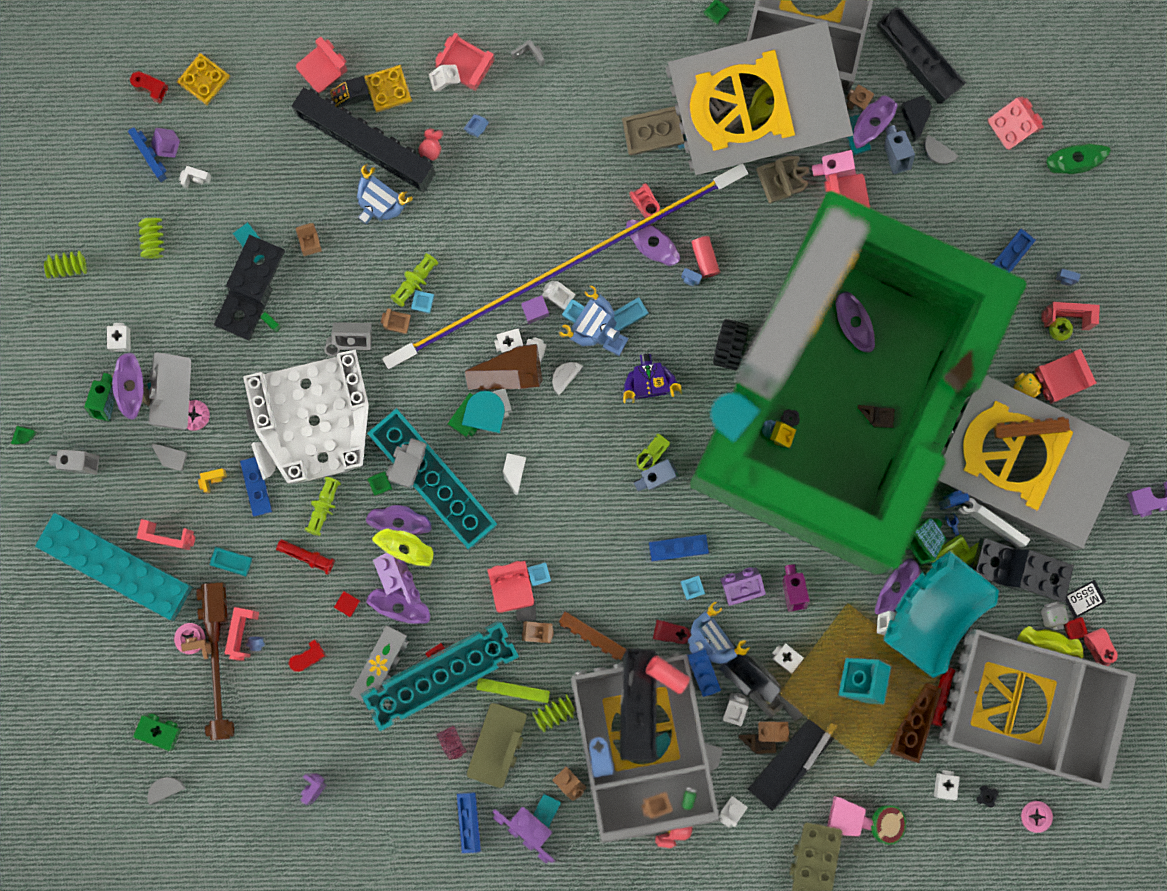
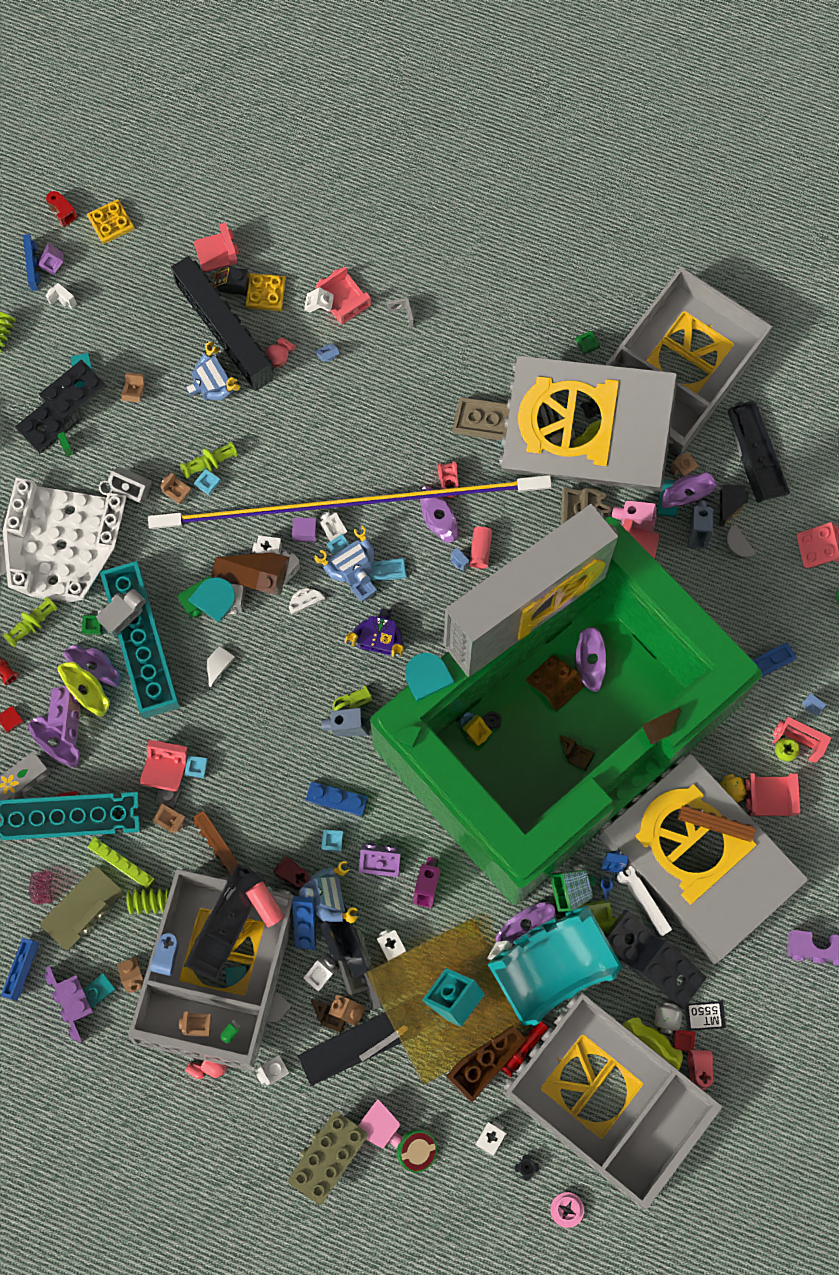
camera: 25 degrees right, 10 degrees down
(831, 357) = (556, 681): none -> reddish brown bracket

